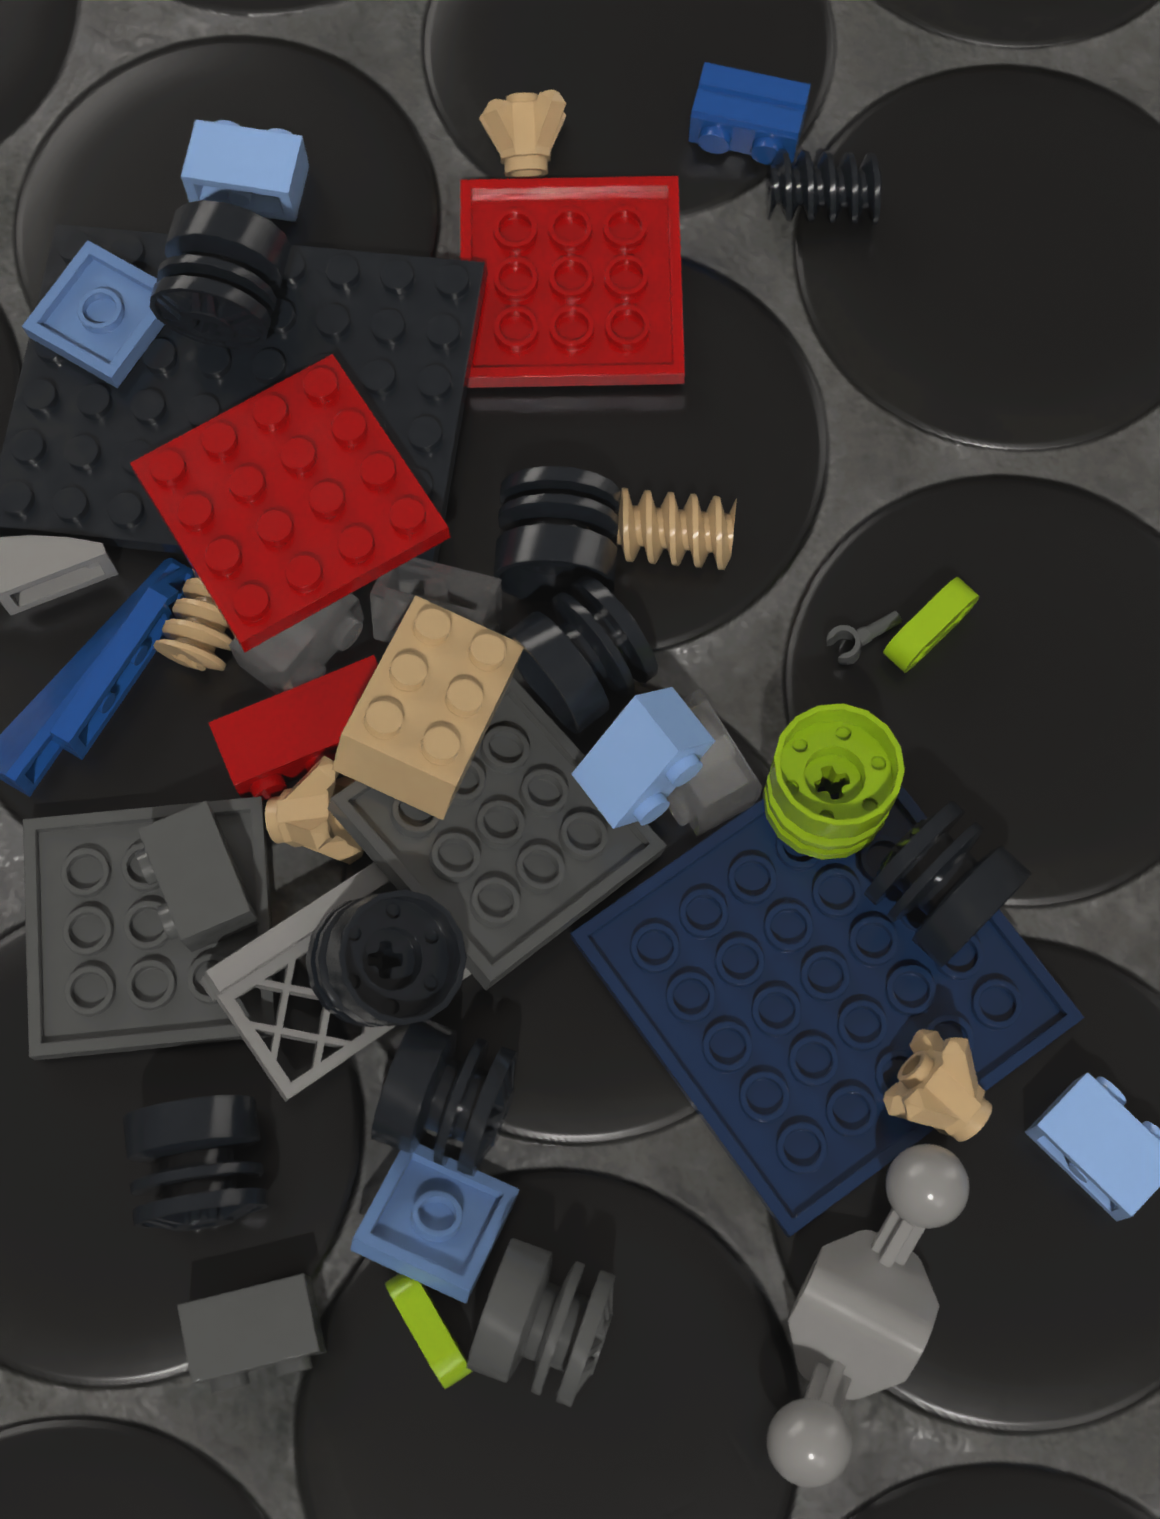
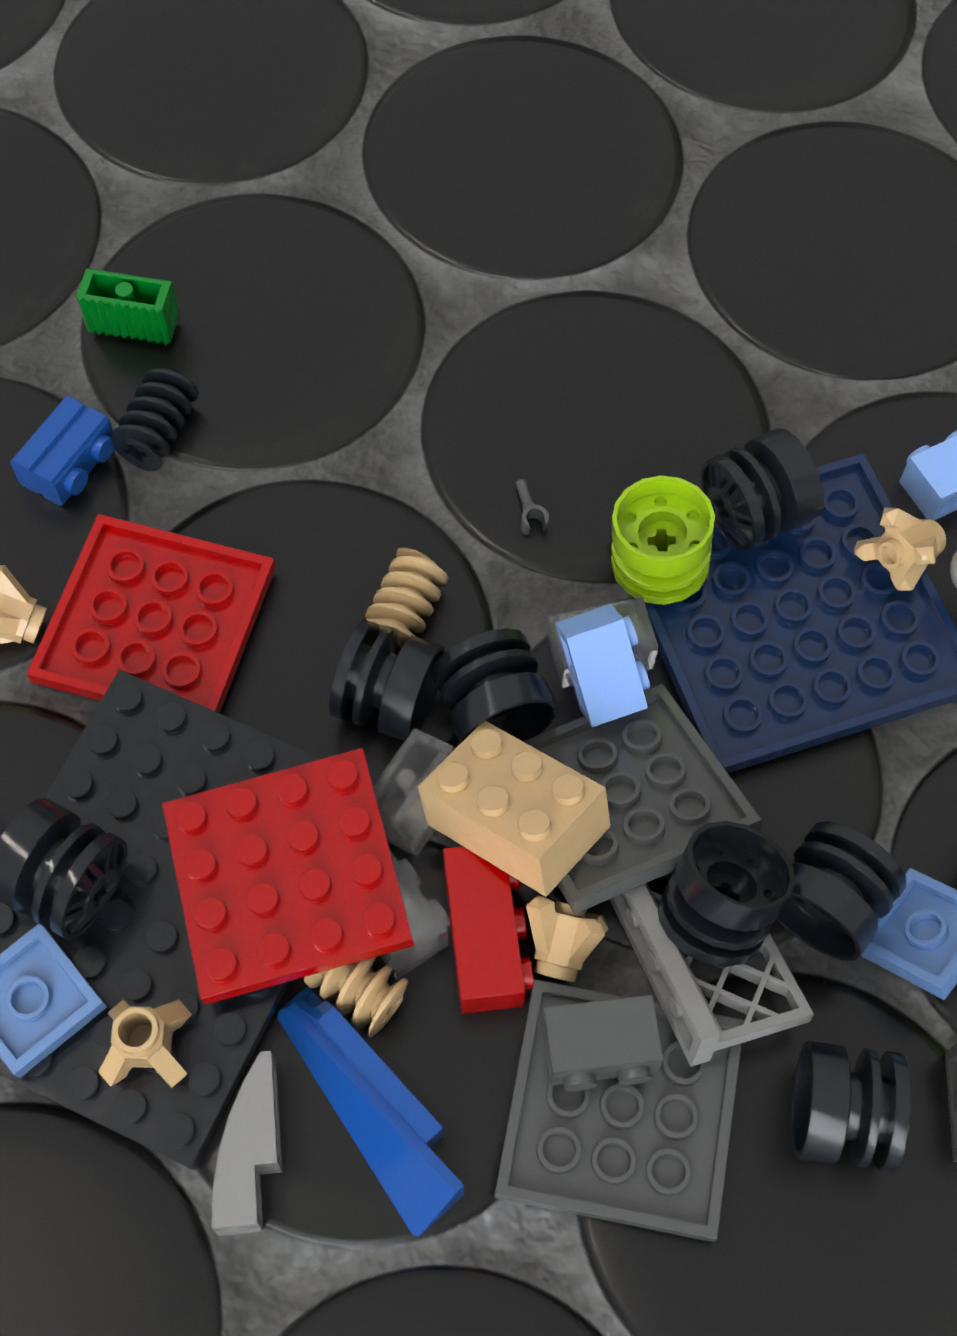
camera: 75 degrees left, 10 degrees down
(80, 429) = (144, 1040): none -> tan rock
(931, 624) = (539, 458): lime beam -> none
(964, 103) = (128, 305): none -> green brick

